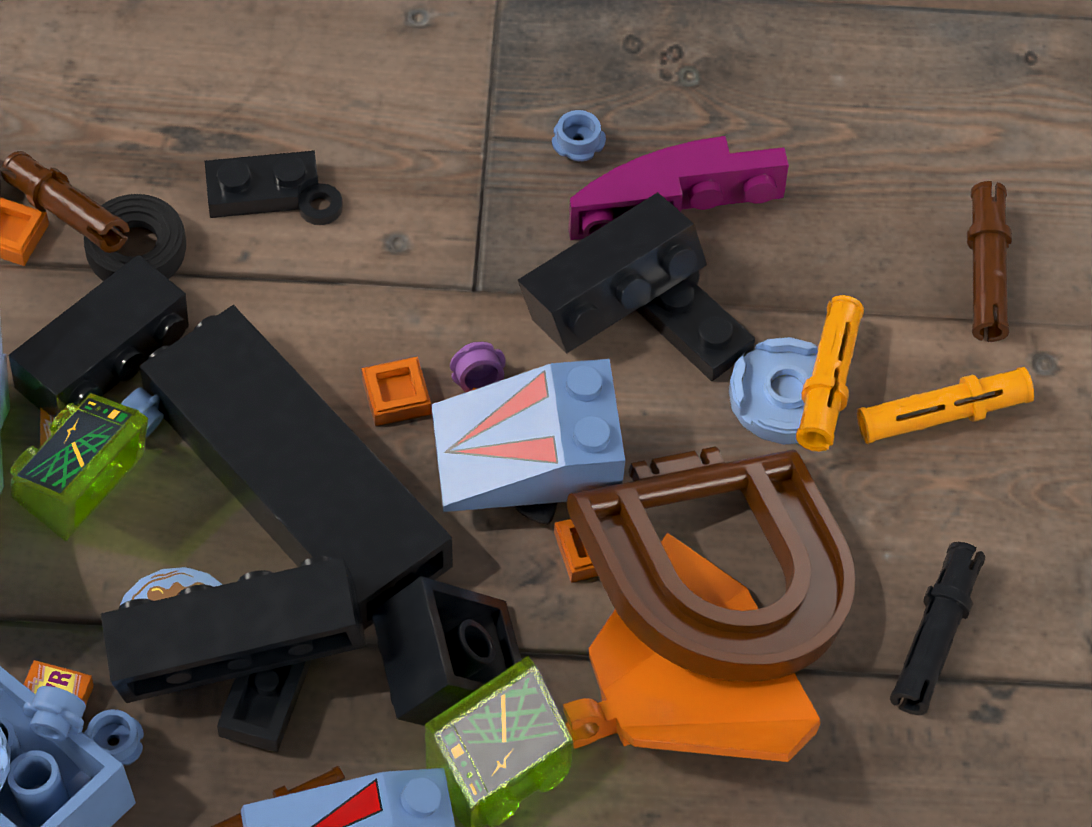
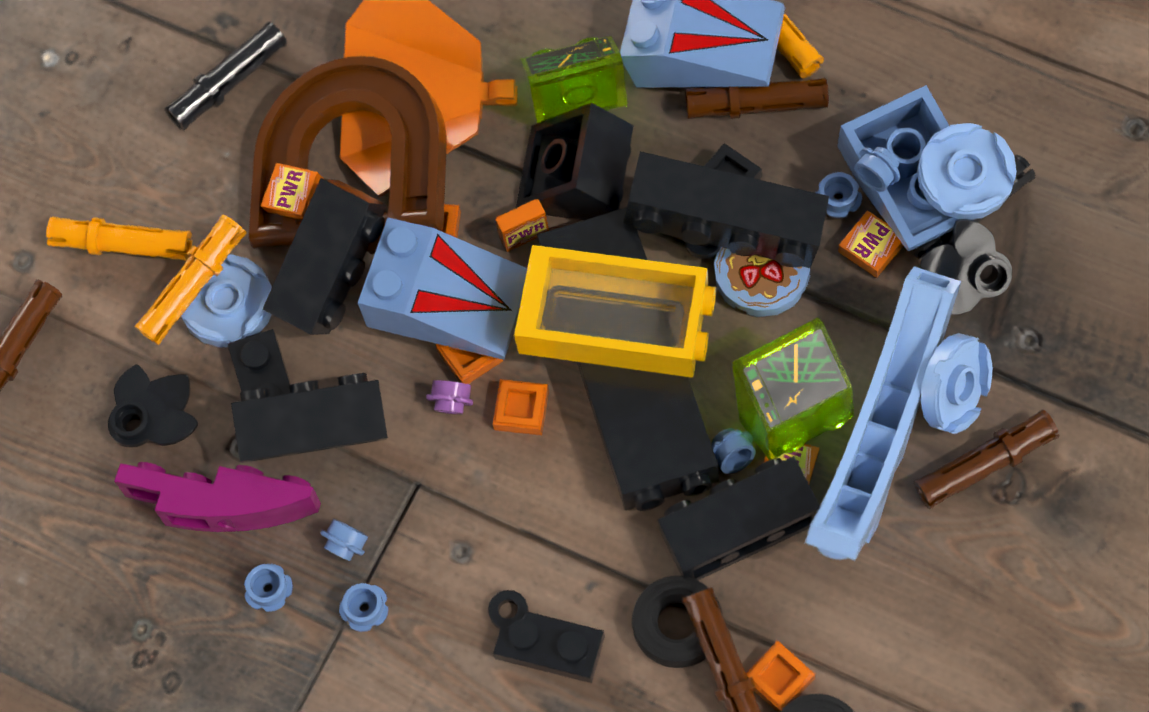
camera: 145 degrees left, 10 degrees up
(314, 458) = (614, 311): none -> piece
(469, 140) = (359, 595): none -> medium blue plate
(484, 563) = (521, 224): none -> orange tile
(521, 210) = (344, 540): none -> medium blue plate
(681, 428) = (326, 257): none -> black brick
(766, 490) = (290, 191): none -> tile
(797, 261) = (156, 404): none -> black plate

